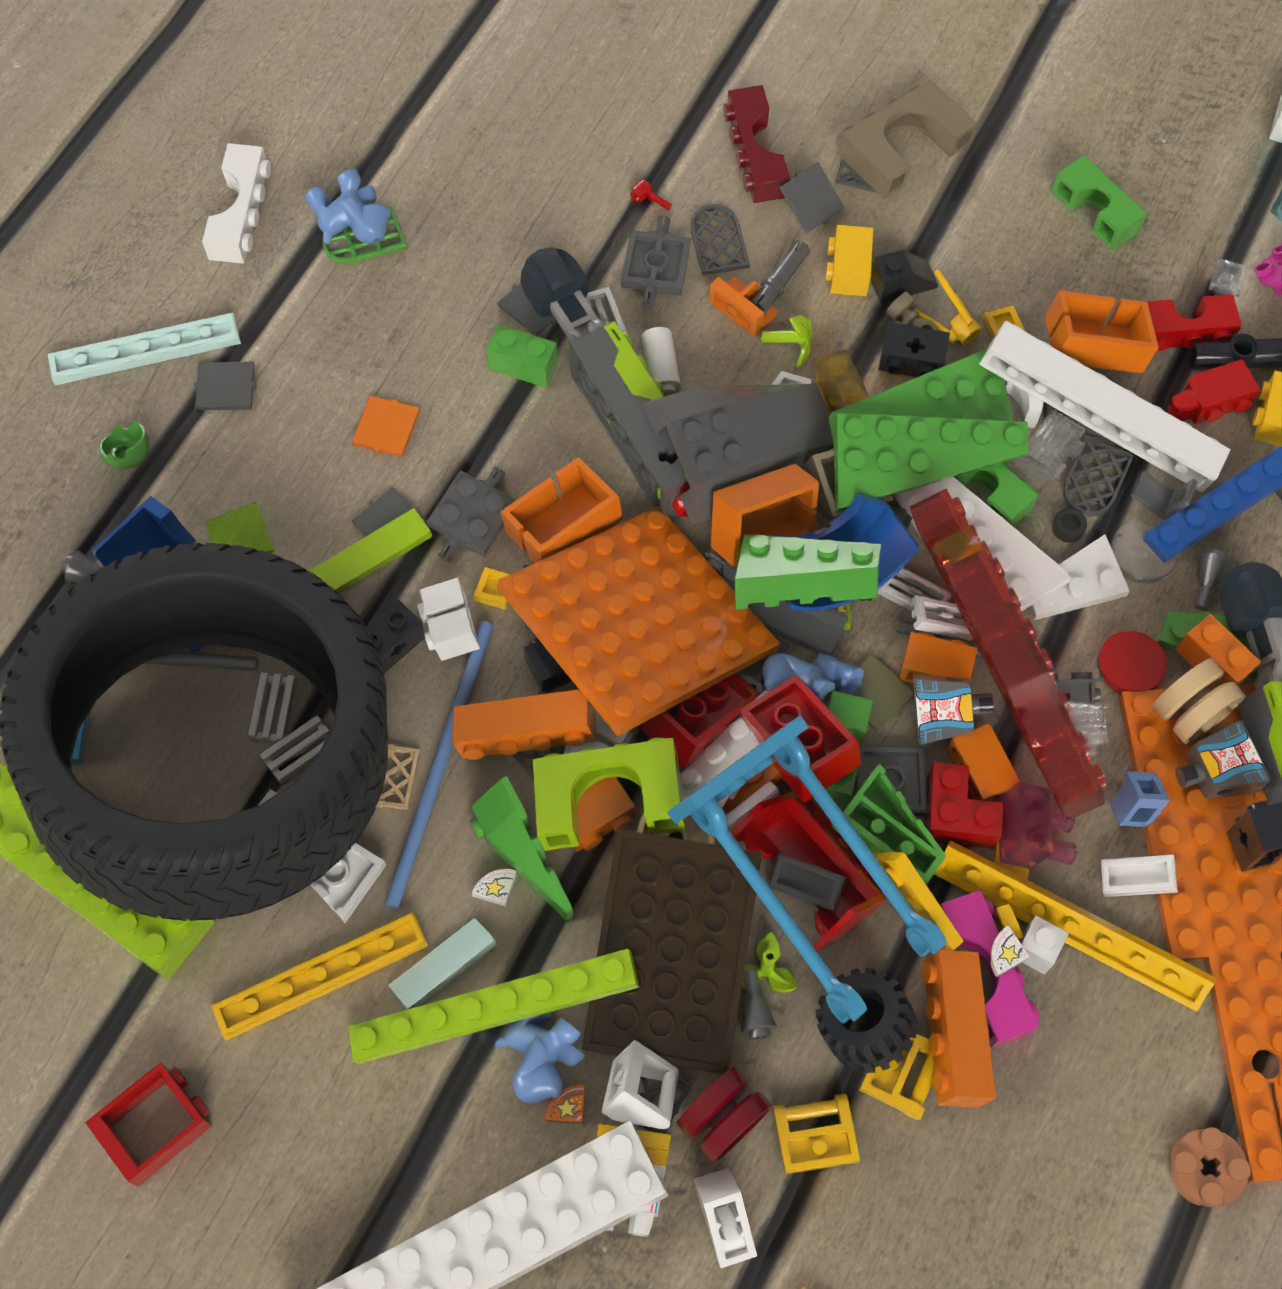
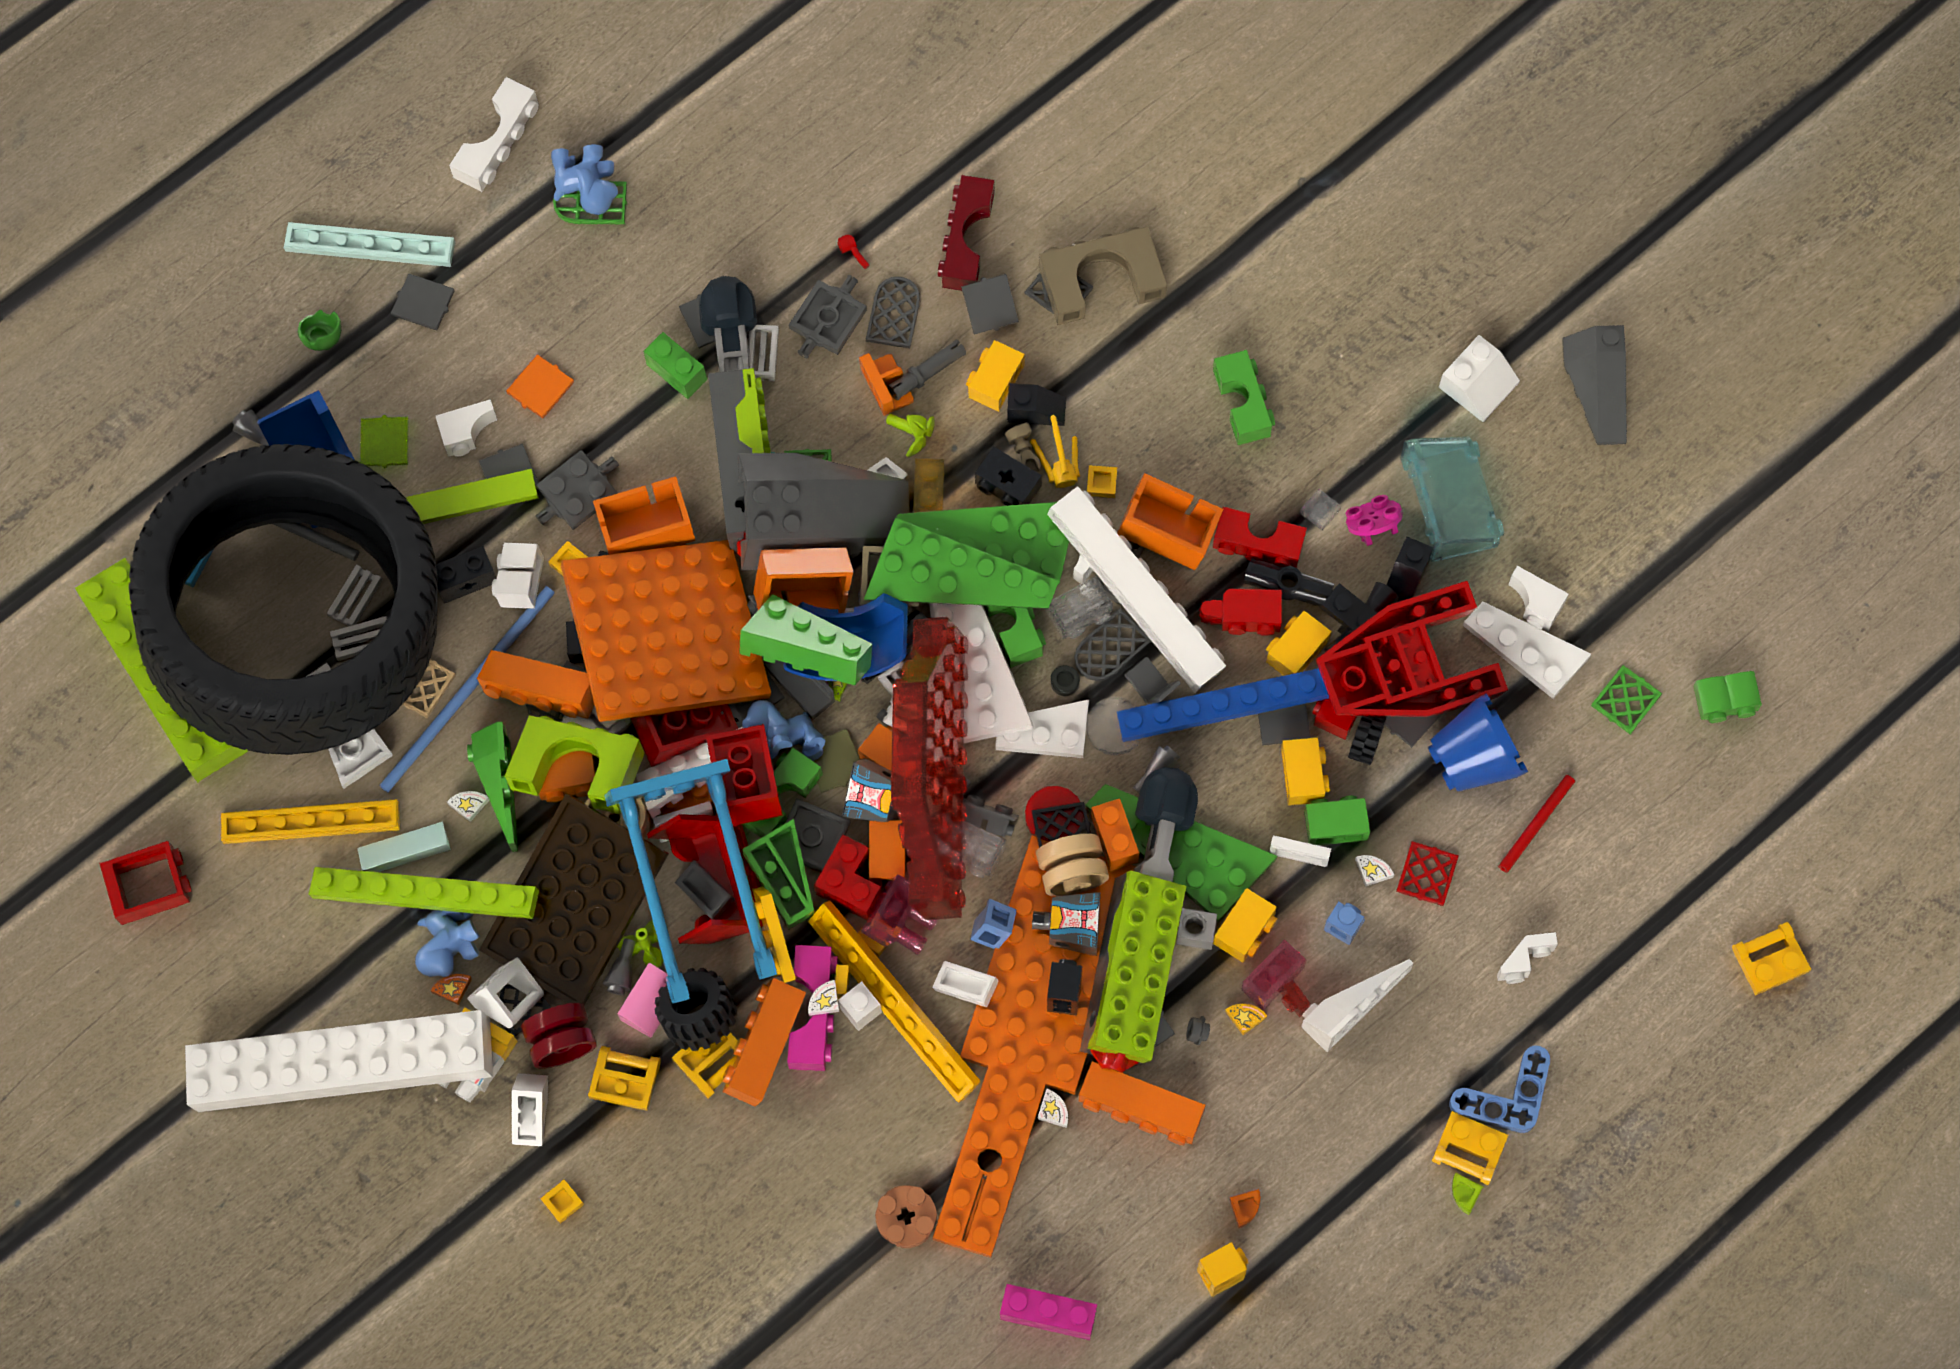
camera: 25 degrees right, 5 degrees up
(320, 489) = (463, 425): none -> white arch
(661, 358) = (789, 413): white brick -> none
(799, 1037) = (640, 1004): none -> bright pink brick
(1137, 655) = (1062, 829): none -> black window

